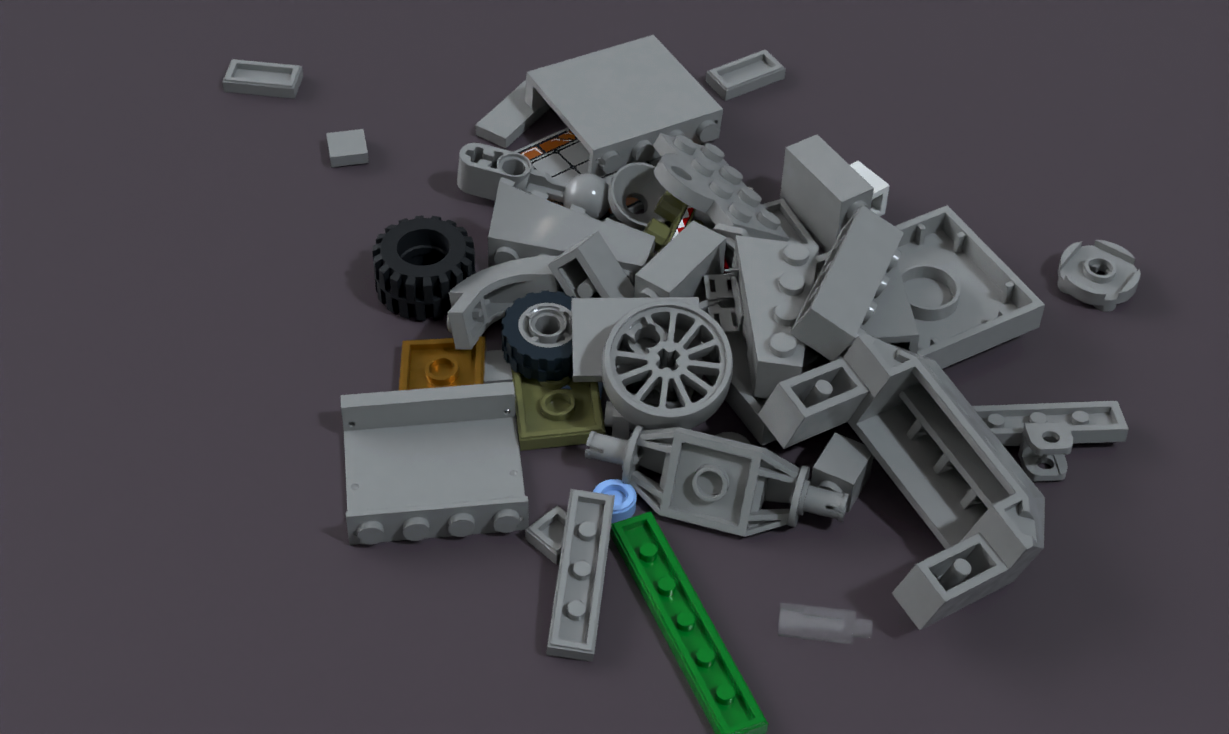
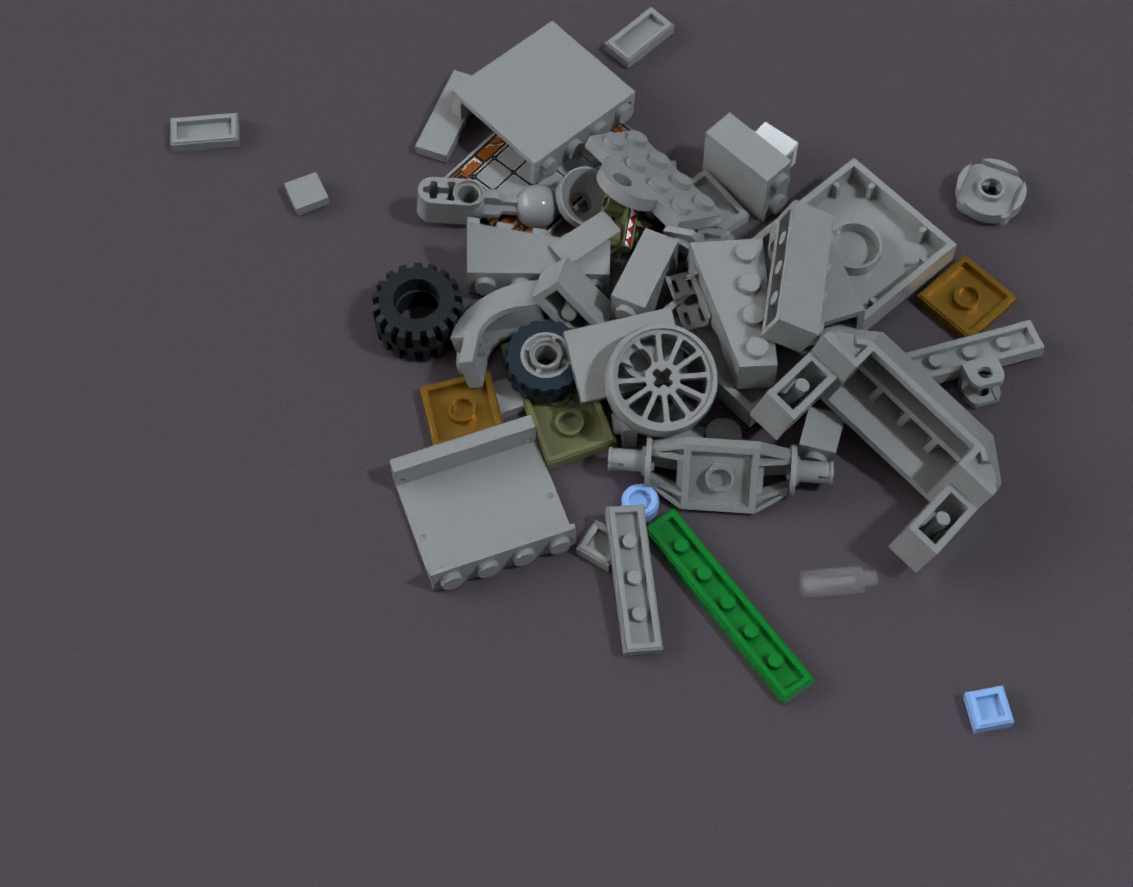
camera: 10 degrees left, 15 degrees up
(628, 225) = (585, 237): none -> light grey sticker
(1048, 370) = (966, 298): none -> pearl gold tile

